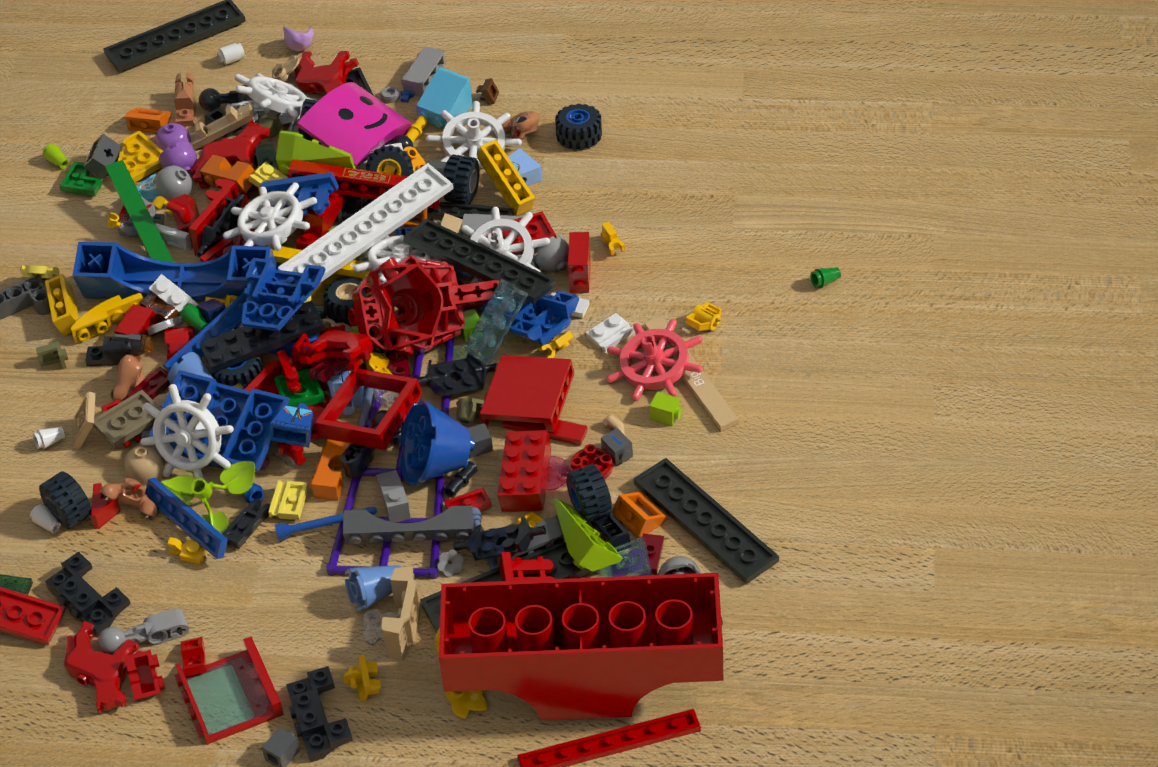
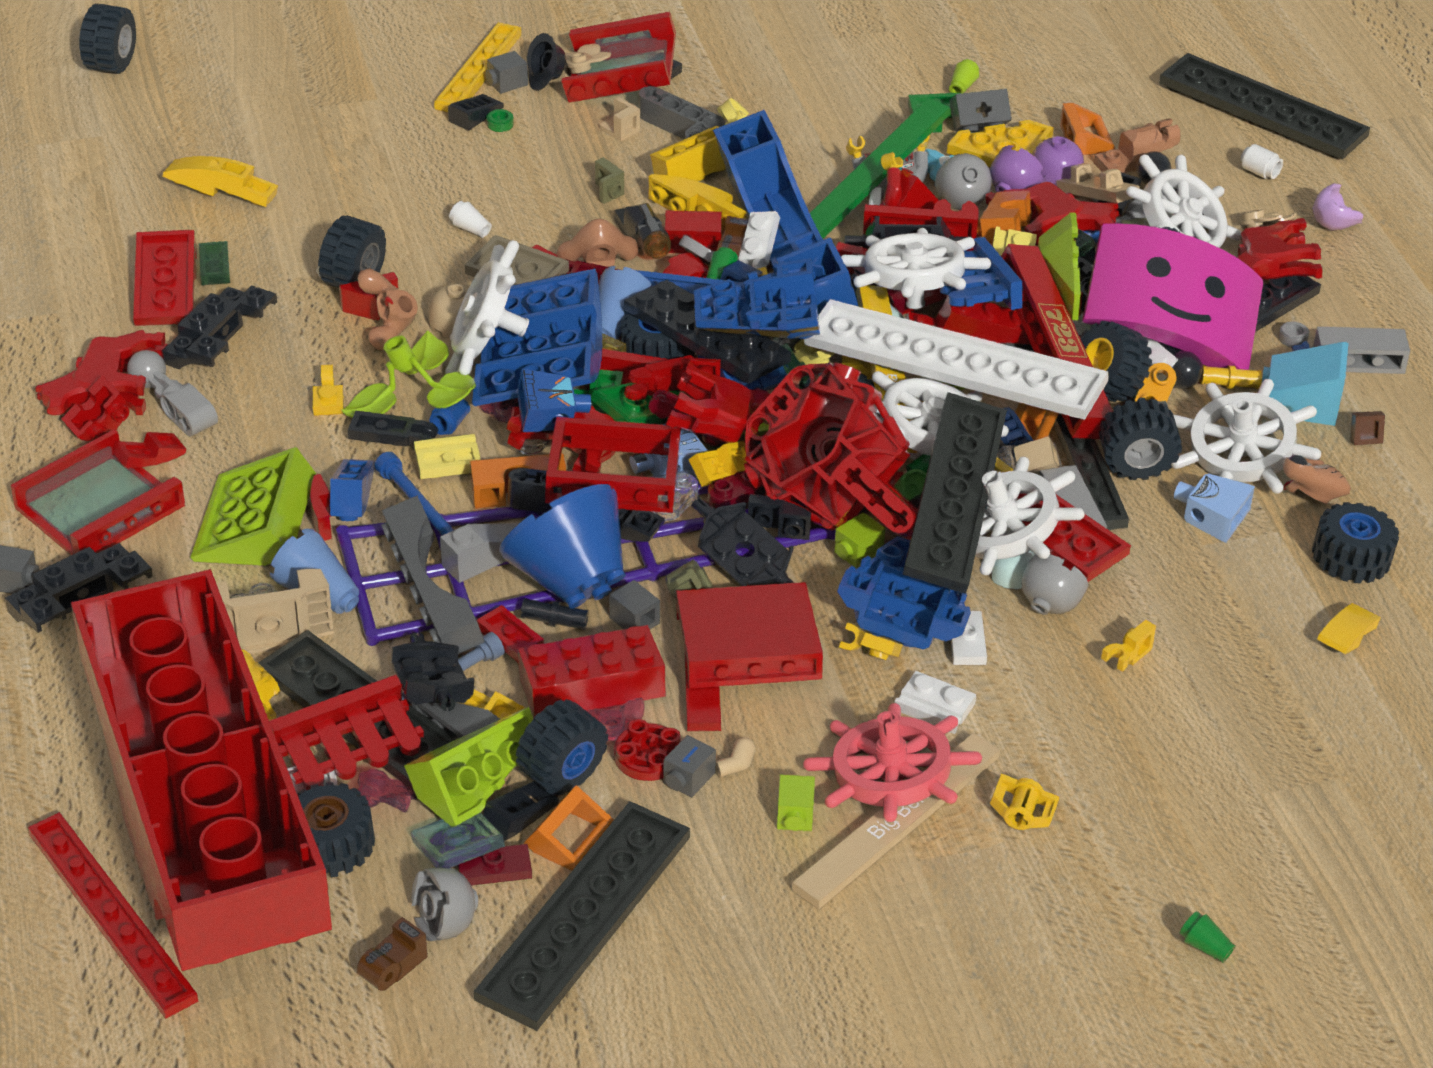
camera: 65 degrees right, 5 degrees down
(83, 420) = (508, 226): tan tile -> none
(186, 518) = (365, 374): blue plate -> none
(290, 608) = (255, 510): none -> lime slope
(295, 552) = (351, 489): none -> blue slope
(310, 575) = (321, 507): none -> red slope
(439, 351) = (787, 517): none -> black slope
(453, 566) = (387, 639): light grey plant -> none
(495, 321) = (851, 545): clear light blue brick -> none
(505, 177) = (1170, 483): yellow brick -> none
(579, 262) = (1045, 615): red brick -> none
(637, 152) = (1348, 628): none -> yellow slope

